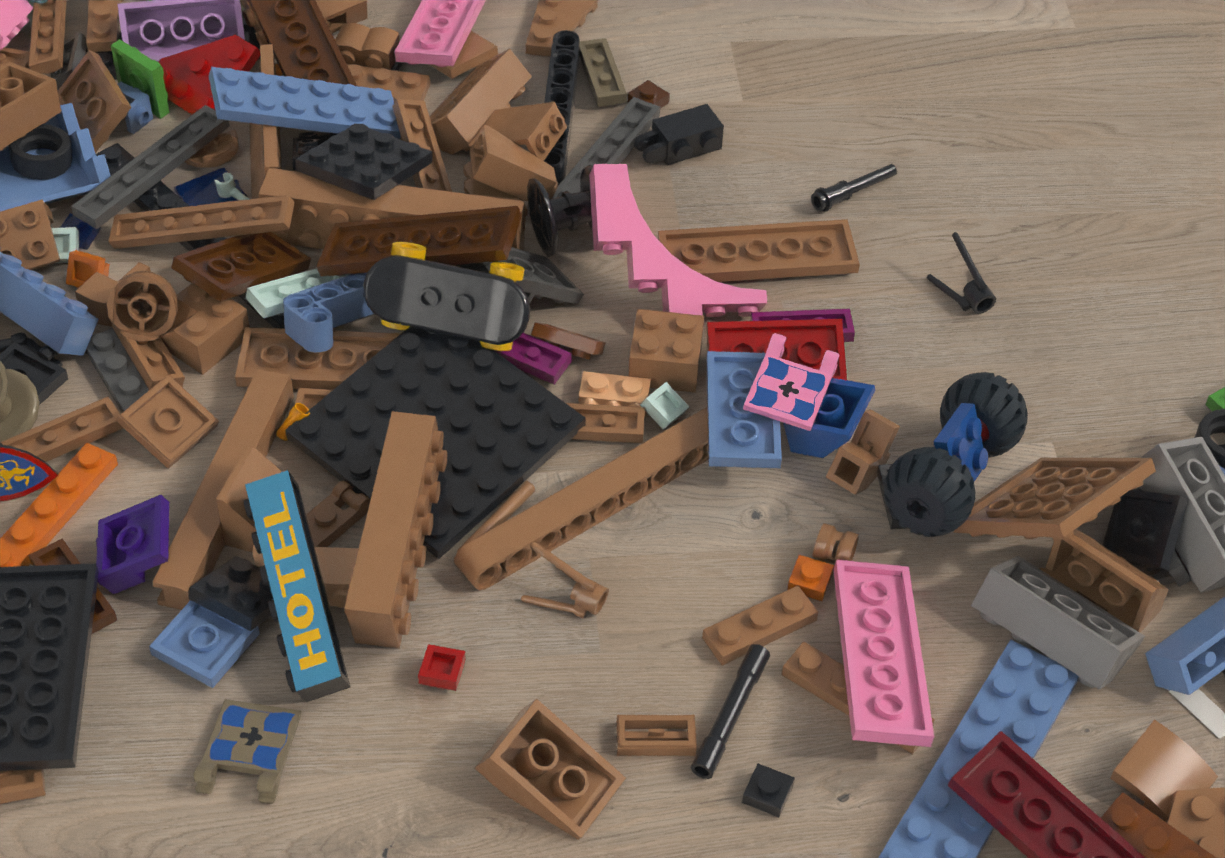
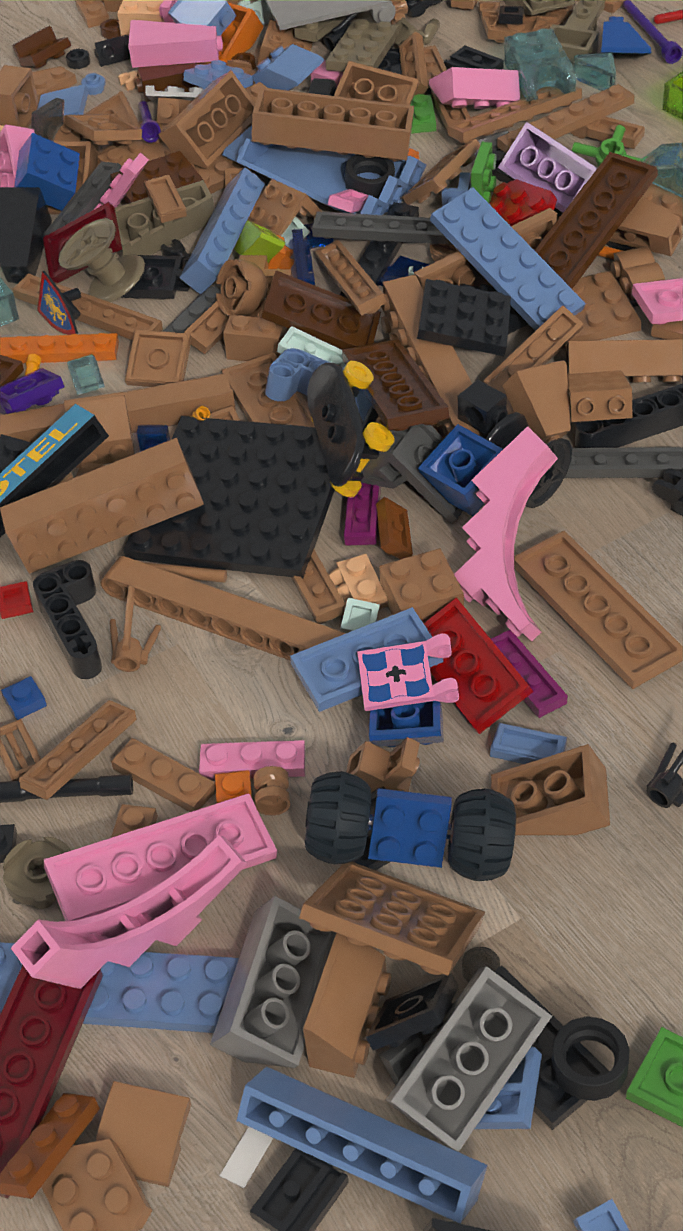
camera: 70 degrees right, 0 degrees up
(72, 178) = (348, 200): none -> bright pink tile
(72, 540) = (32, 364): none -> light orange piece
(74, 267) = (258, 241): none -> lime slope
(123, 255) = (302, 257): none -> clear blue plate
(128, 491) = (85, 374): none -> clear light blue slope
(297, 463) = (152, 435): none -> clear blue plate
(517, 189) = (482, 406): none -> black brick
(558, 628) = (57, 597): none -> black beam
(562, 246) = (456, 464): none -> blue slope
(584, 706) = (23, 698): none -> blue plate
(697, 676) = (77, 750): none -> medium nougat tile
(780, 551) = (252, 756): none -> bright pink plate
(828, 781) = (19, 875): none -> dark tan plate
(880, 360) = (525, 744): none -> medium blue tile
(946, 353) = (557, 793): none -> medium nougat slope
(975, 695) = (79, 948): none -> bright pink arch

